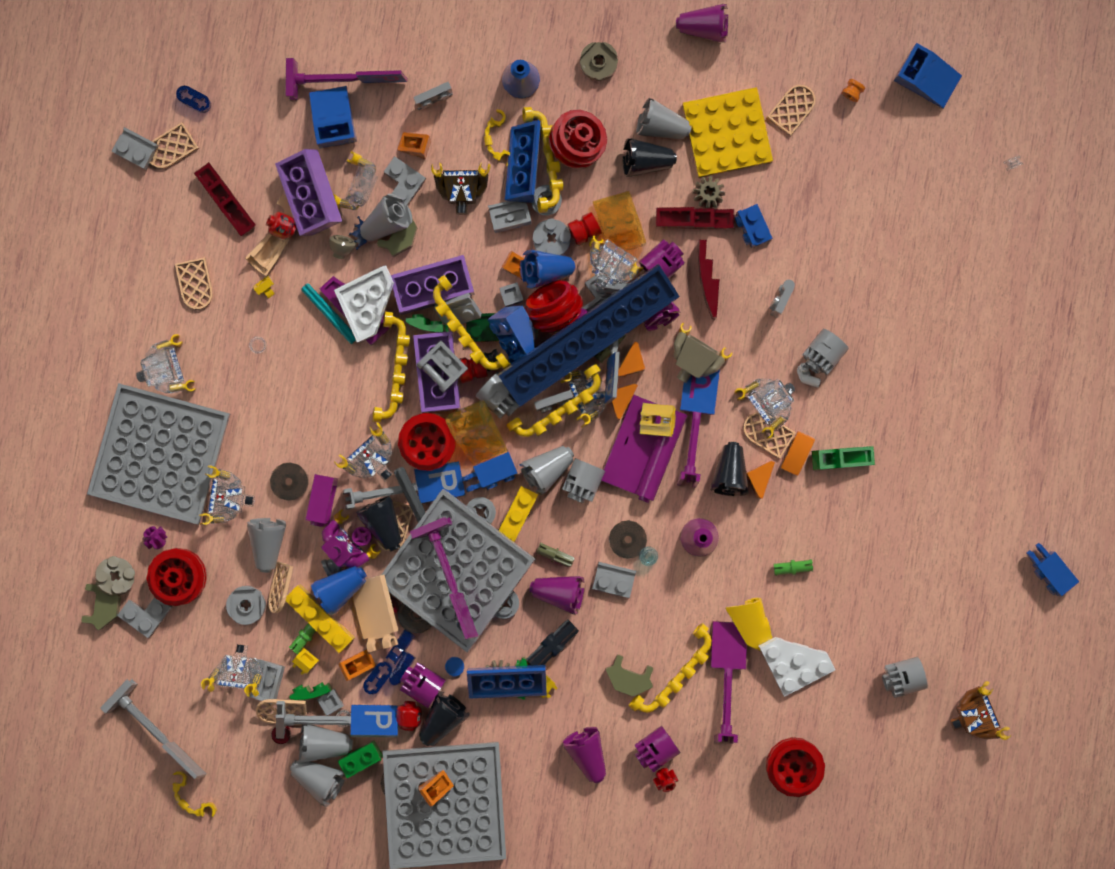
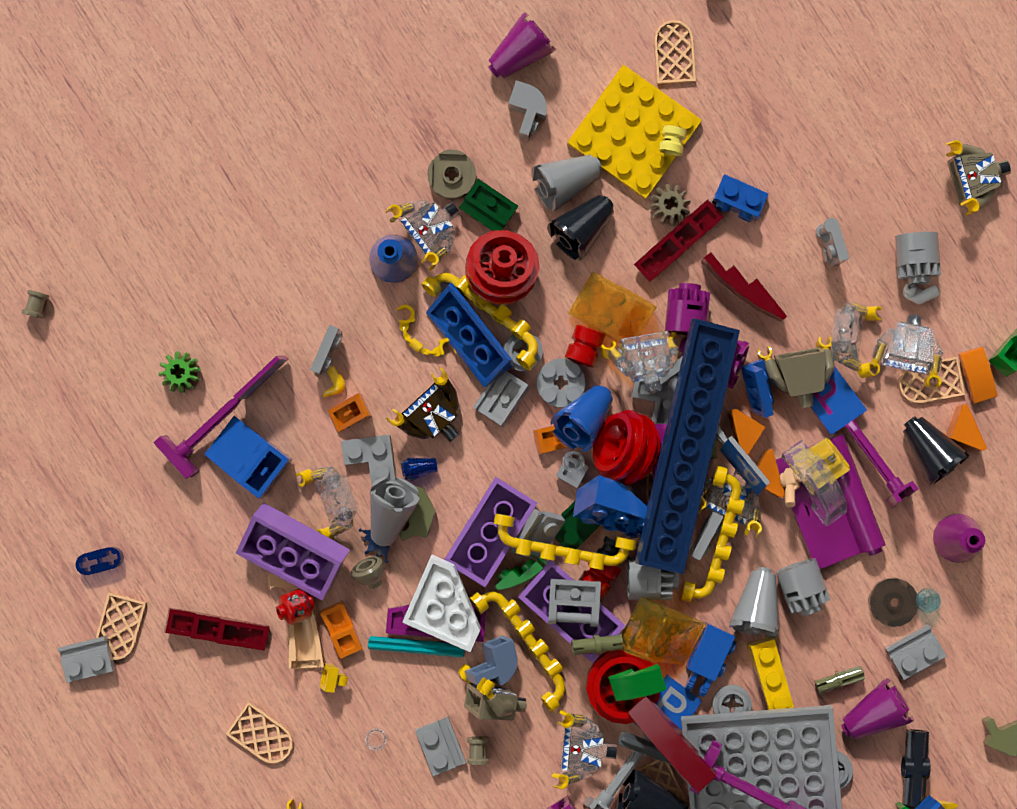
camera: 40 degrees left, 0 degrees up
(291, 383) = (440, 746): none -> light grey plate
(295, 264) = (341, 629): none -> orange slope
(310, 404) = (478, 750): none -> dark tan bush
(343, 381) = (490, 701): none -> dark tan torso
(345, 28) = (184, 363): none -> bright green gear
(370, 364) = (499, 664): none -> sand blue brick
(424, 120) = (338, 383): none -> yellow animal
(424, 211) = (418, 467): none -> clear blue cone
(424, 495) = (672, 743): none -> dark red slope
(433, 402) = (597, 644): none -> olive pin
(435, 444) = (637, 684): none -> green slope
(522, 290) = (580, 458): none -> clear bush
(556, 78) = (427, 227): none -> torso
(603, 98) = (488, 206): none -> dark green plate
(632, 413) = (792, 483): none -> light nougat piece
(646, 427) = (820, 482): none -> clear arch
(662, 343) = (758, 388): none -> blue bracket
(682, 62) = (532, 103): none -> light grey brick
(741, 360) = (848, 333): none -> clear torso
(743, 155) = (672, 140): none -> light yellow wheel
(902, 335) = (975, 175): none -> torso

